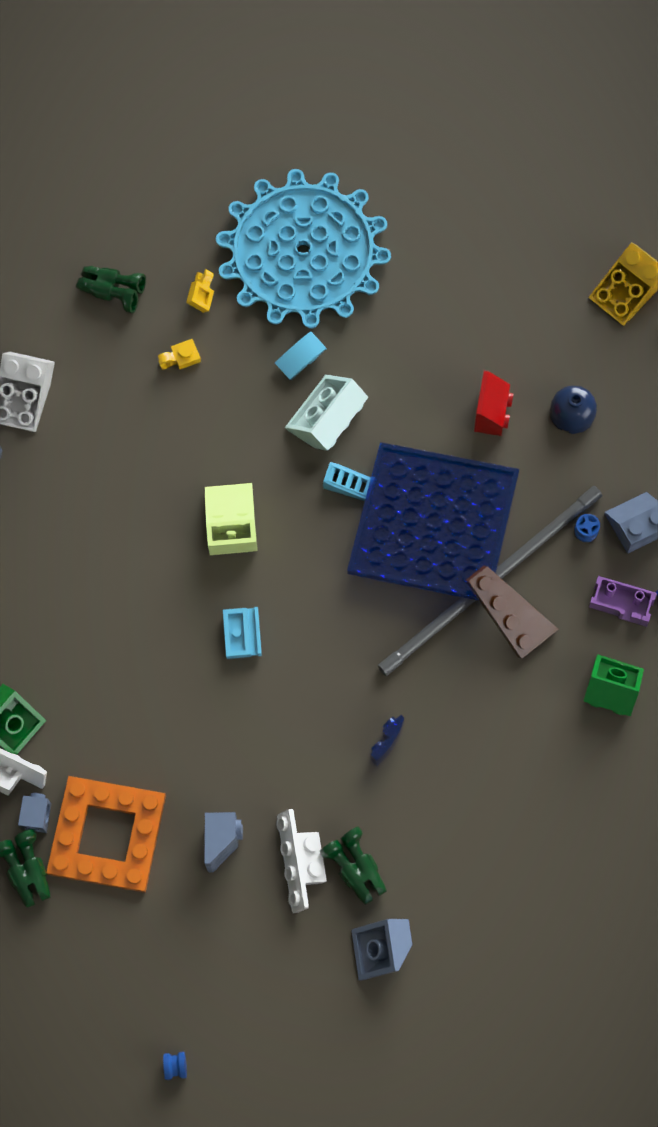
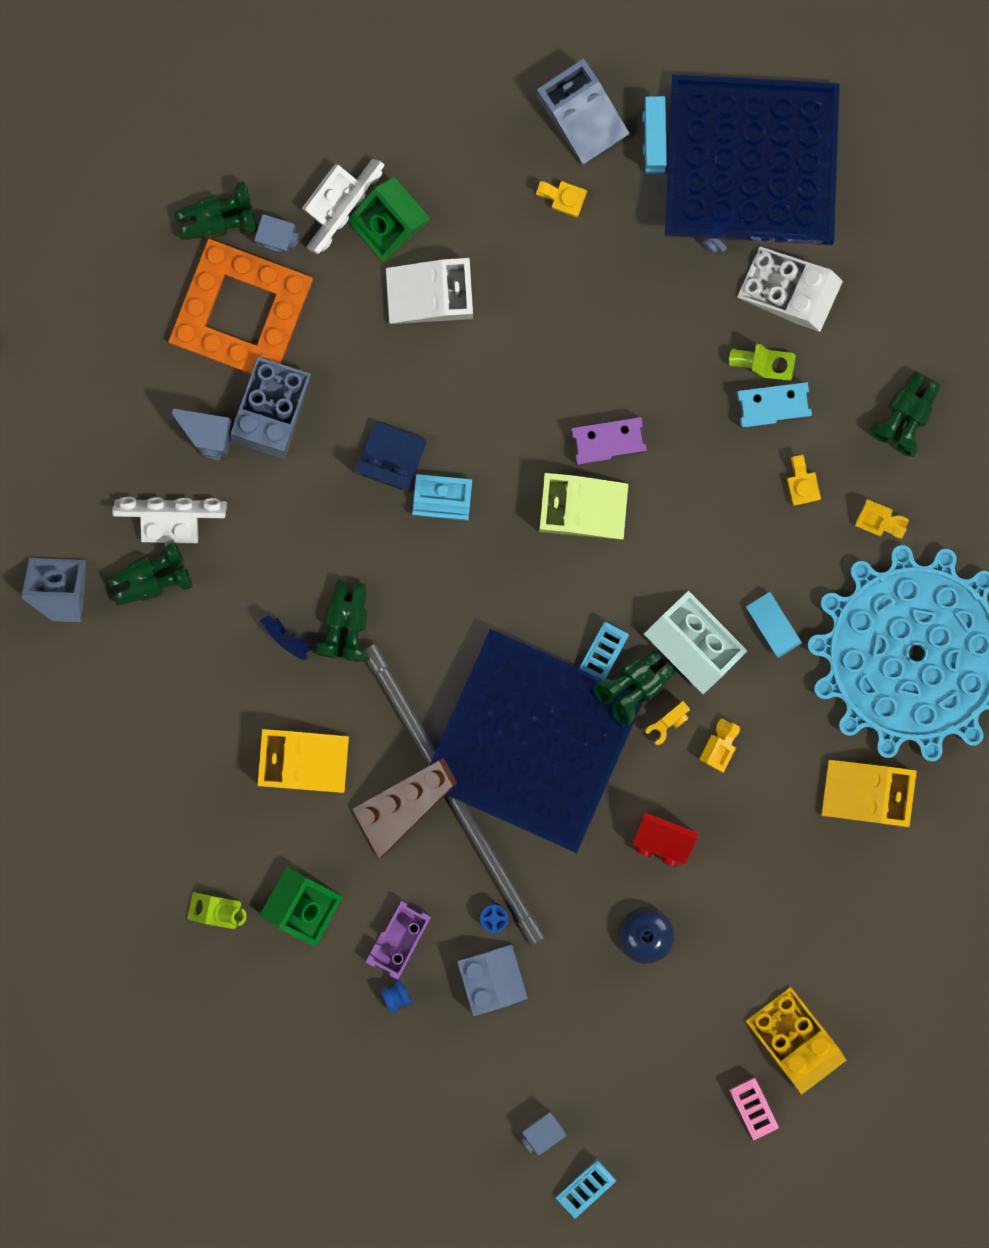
camera: 100 degrees right, 15 degrees up
(66, 672) = (430, 291): none -> white slope
(86, 402) = (762, 361): none -> lime bracket
(120, 387) = (773, 404): none -> medium azure piece
(171, 508) = (608, 440): none -> medium lavender piece
(188, 787) = (270, 408): none -> sand blue slope
(215, 681) = (391, 456): none -> dark blue bracket
(358, 689) = (344, 615): none -> dark green piece
(366, 443) = (641, 679): none -> dark green piece
(391, 417) = (674, 717): none -> yellow plate
(409, 379) = (719, 748): none -> yellow plate
(422, 261) = (869, 793): none -> yellow slope
(490, 706) = (303, 761): none -> yellow slope
(635, 753) = (217, 911): none -> lime bracket

